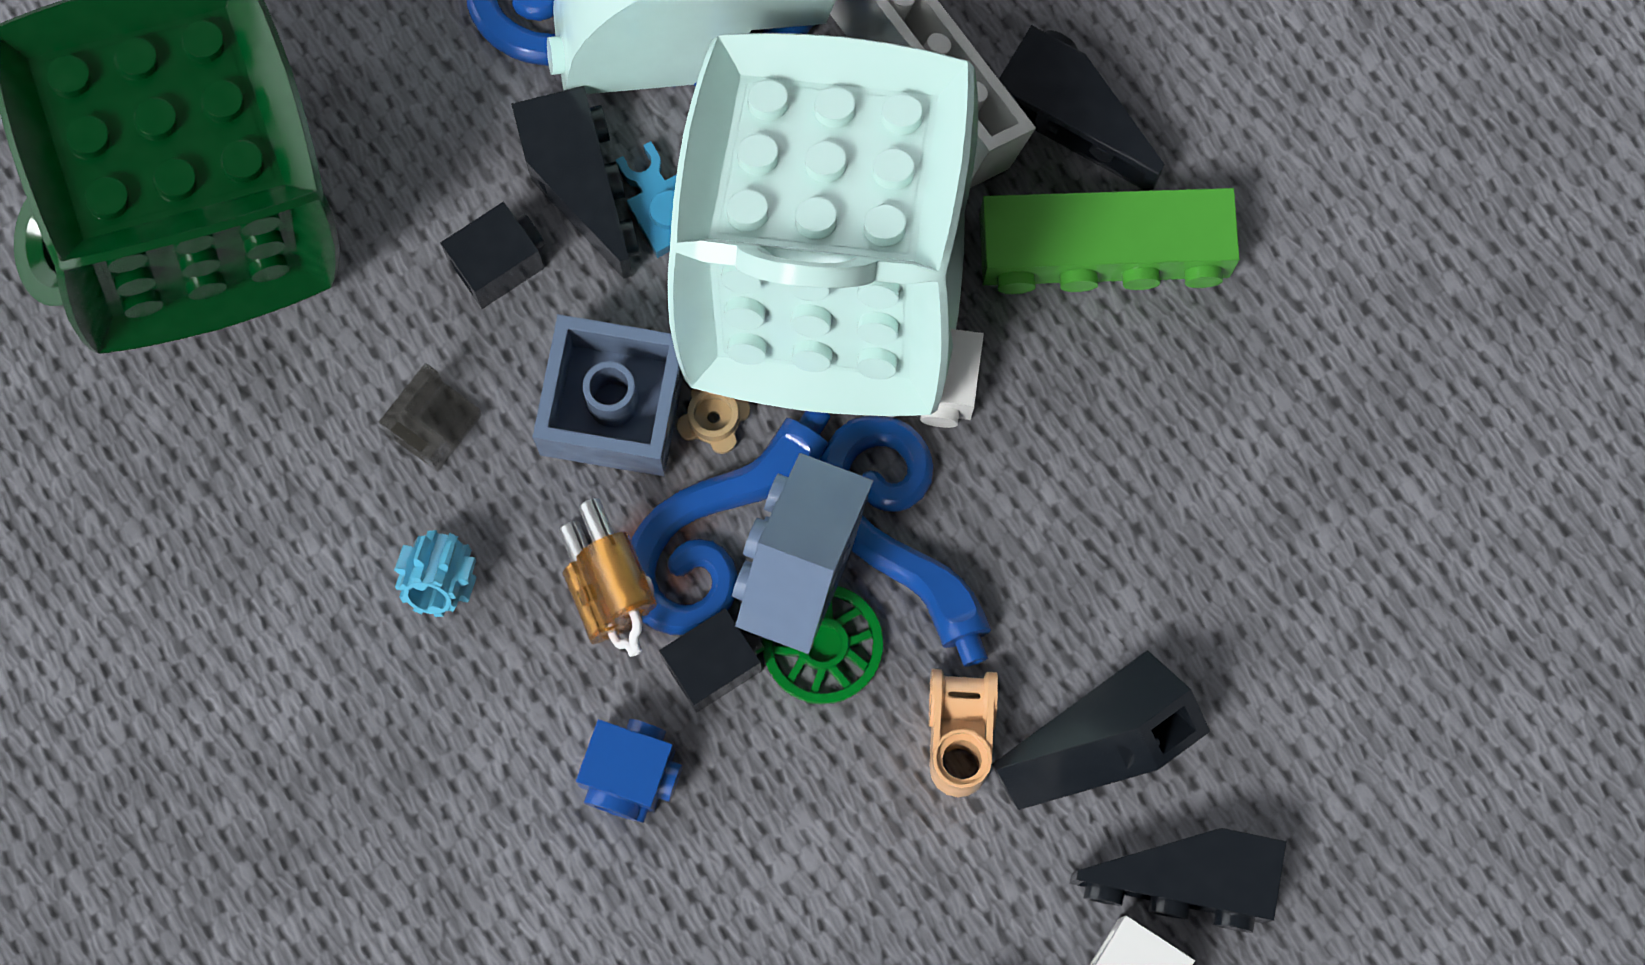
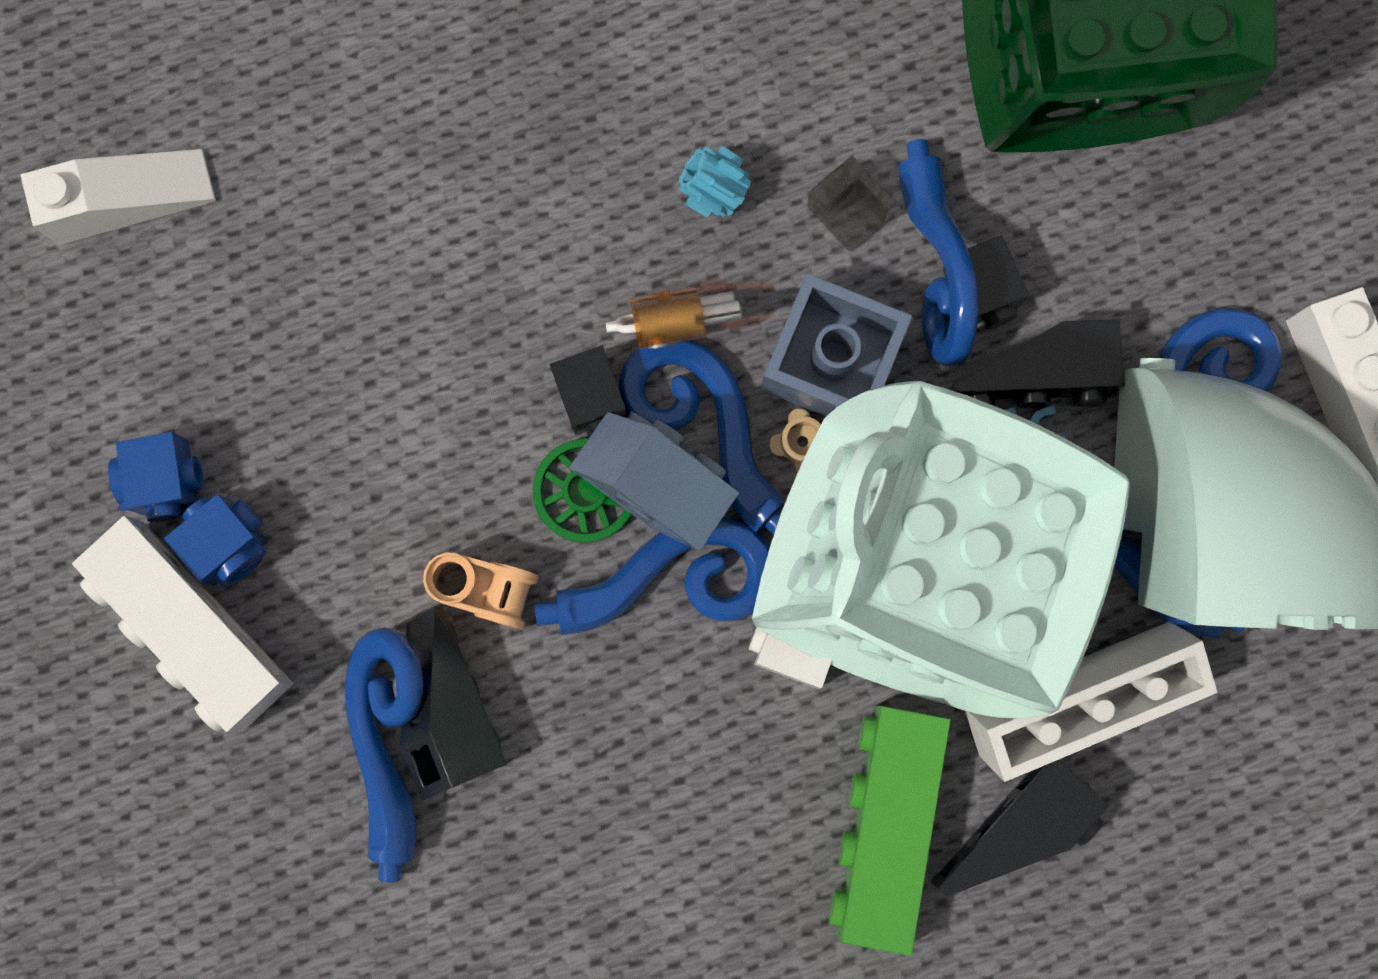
camera: 105 degrees right, 5 degrees up
(520, 280) = (957, 294): none -> blue plant
(628, 769) = (514, 304): blue brick -> none
(1209, 872) = (309, 762): black slope -> none
(1225, 768) = (366, 700): none -> blue plant

